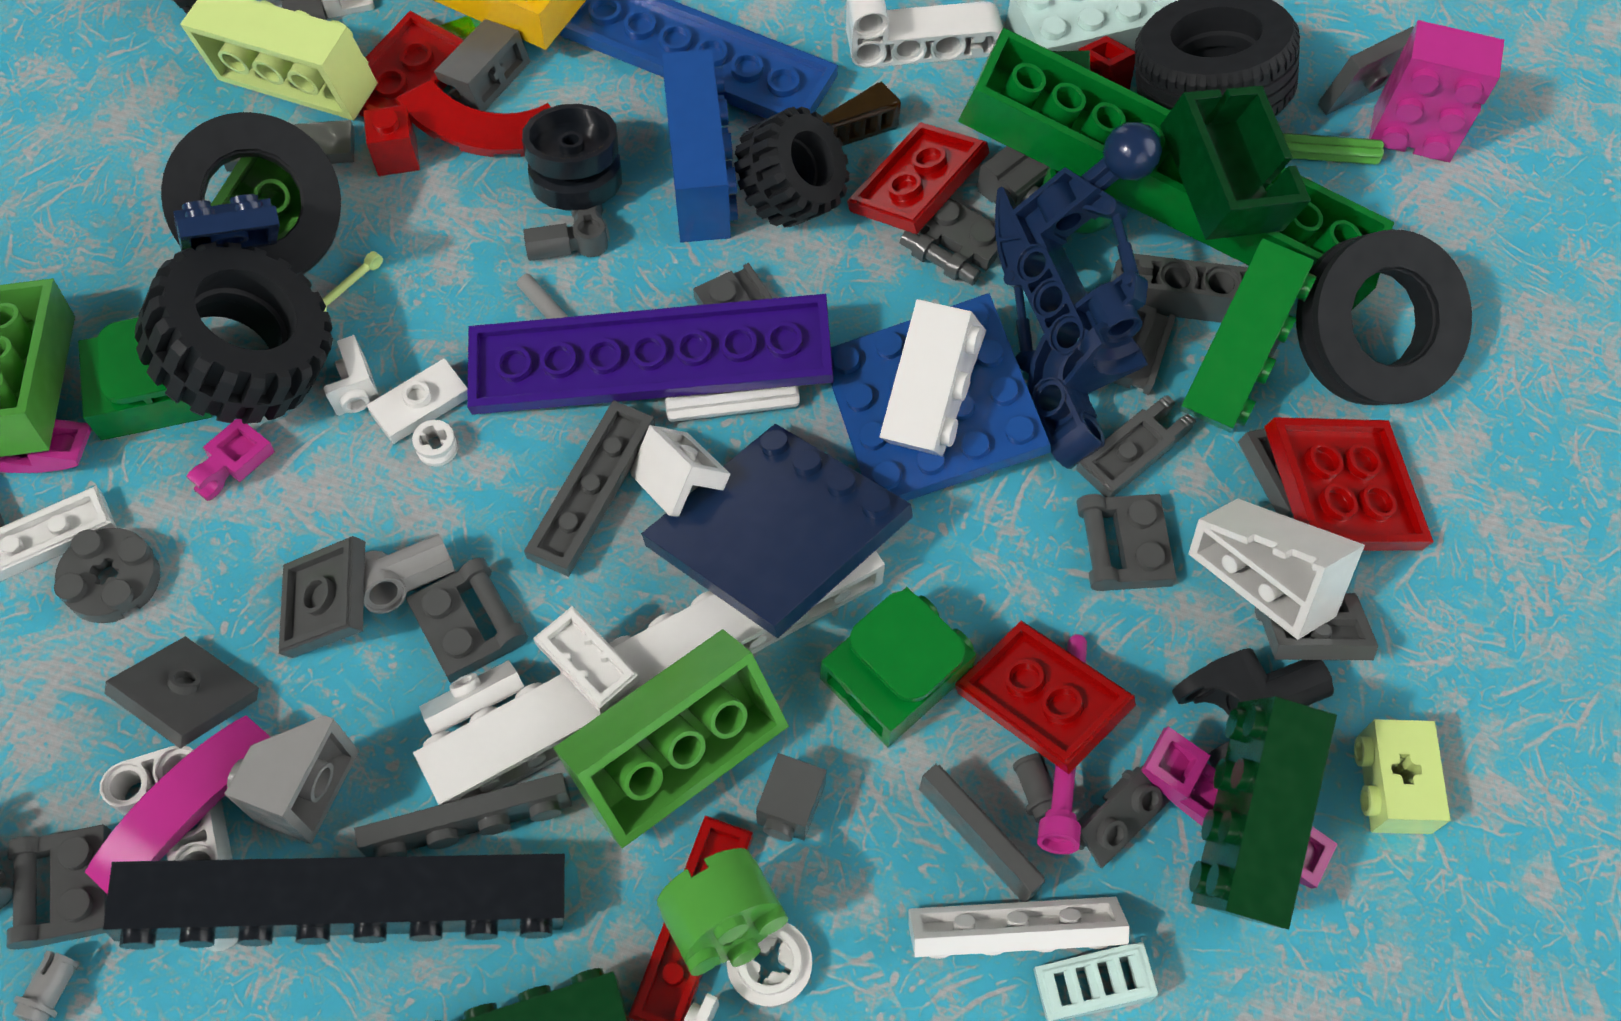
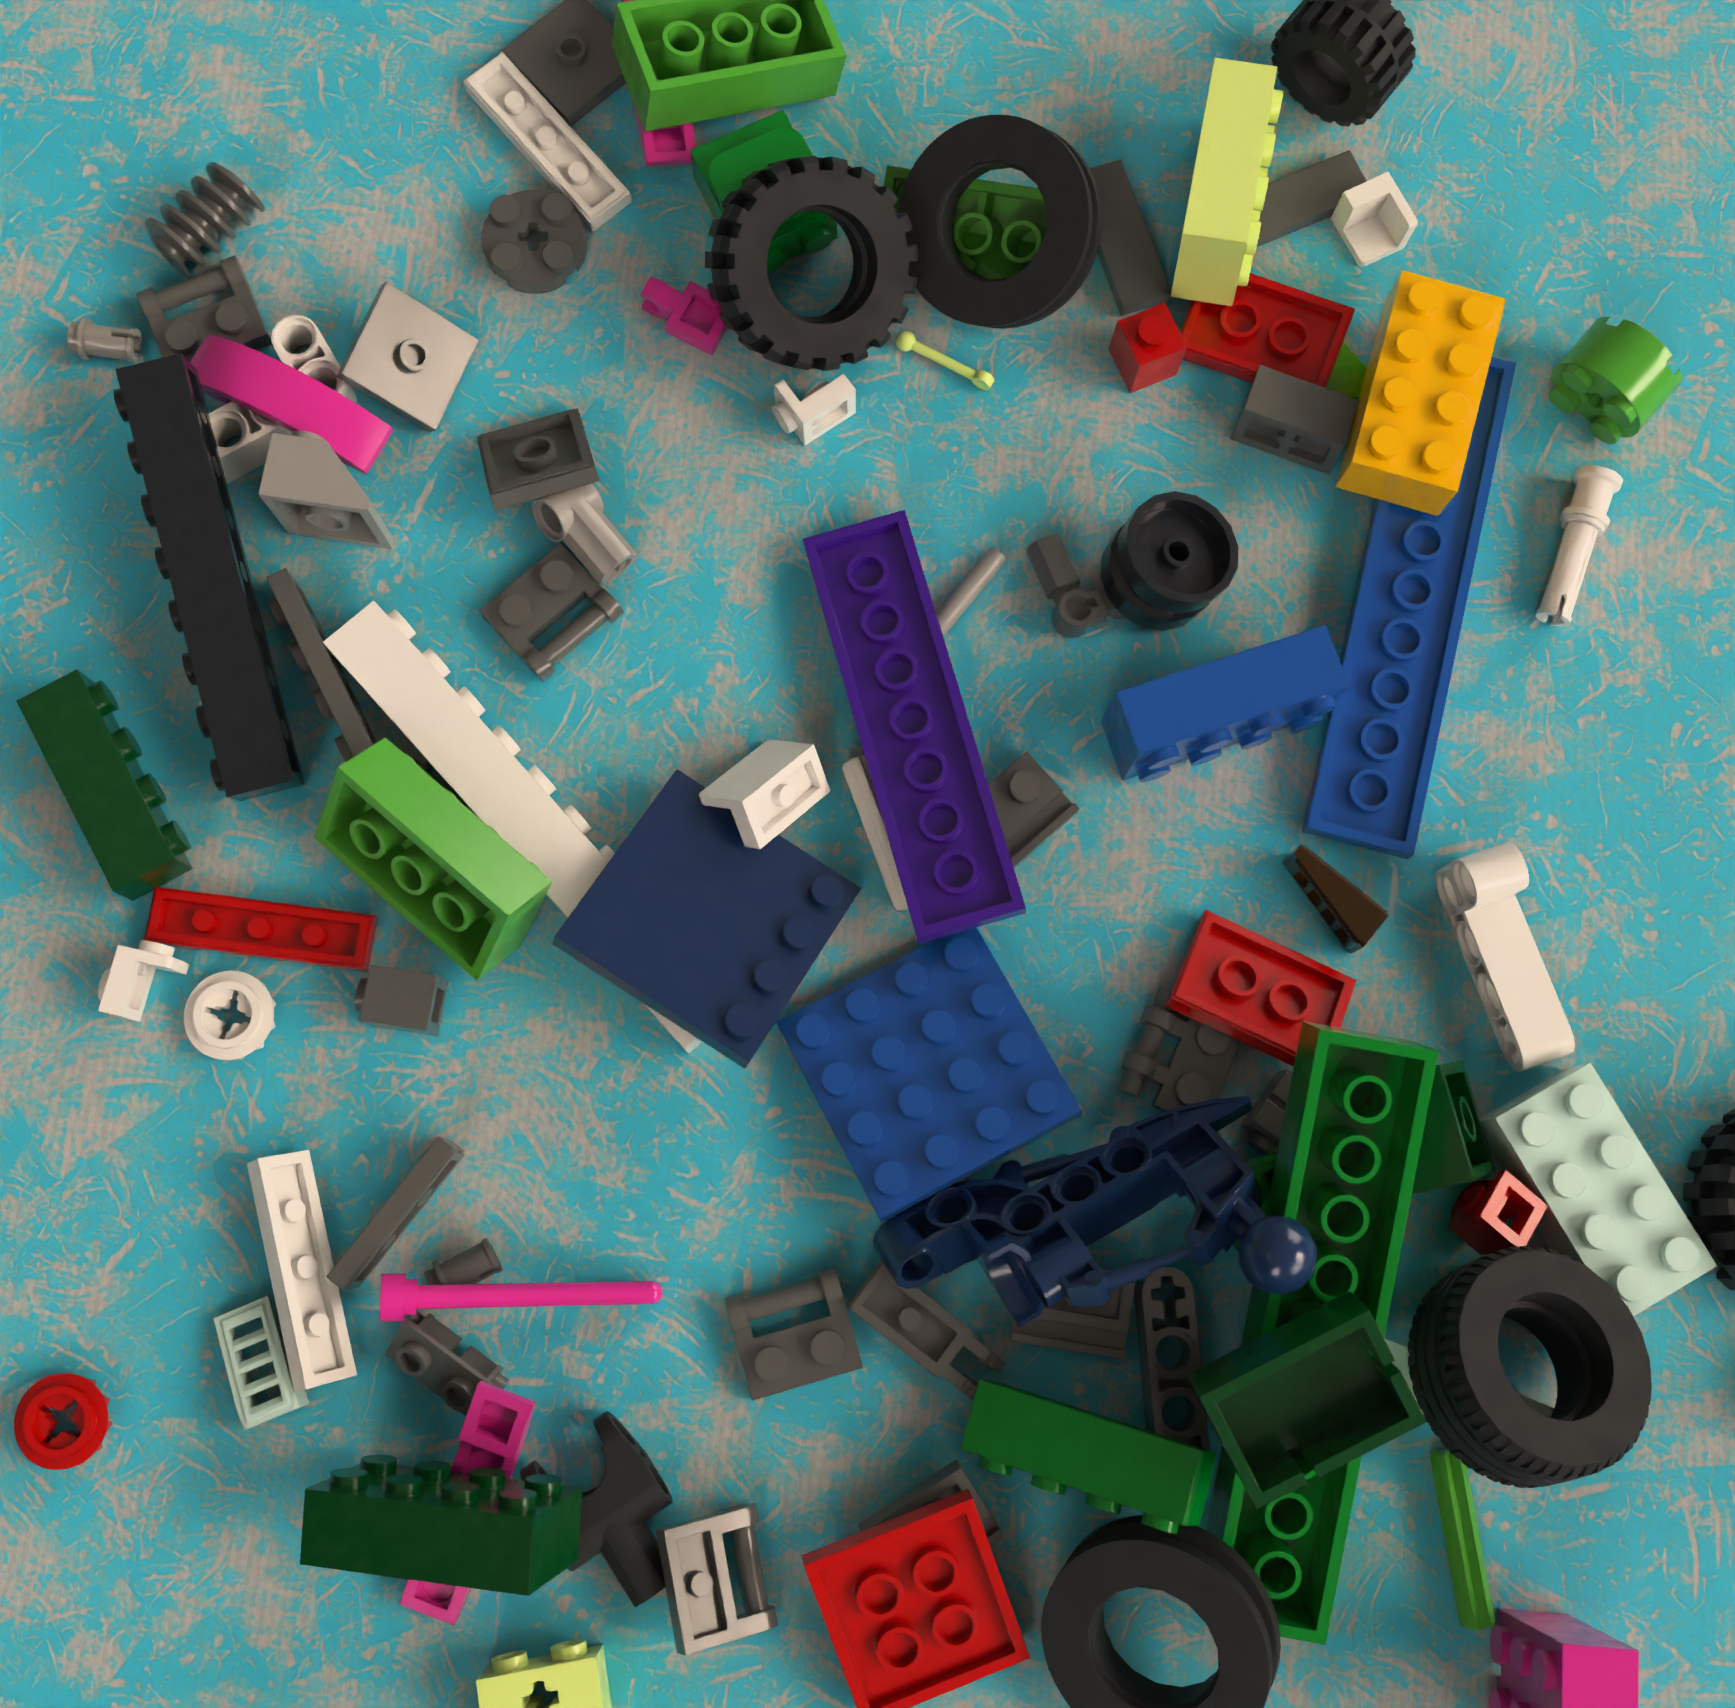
camera: 75 degrees right, 15 degrees up
(242, 221) = (926, 206): dark blue plate -> none
(418, 400) = (807, 484): white plate -> none
(445, 434) = (758, 501): white bush -> none
(463, 126) = (1192, 430): red tile -> none
(469, 696) = (457, 642): white plate -> none
(586, 659) = (496, 746): white plate -> none
(589, 489) = (733, 700): dark grey plate -> none
(721, 911) = (241, 951): bright green brick -> none
(792, 167) = (1217, 865): black tyre -> none
(897, 664) = (576, 1089): green brick -> none
(932, 377) = (925, 1058): white wedge -> none
(1045, 696) = (564, 1261): red tile -> none
(1277, 563) = (771, 1515): white wedge -> none
(1364, 72) = (1596, 1601): dark grey plate -> none

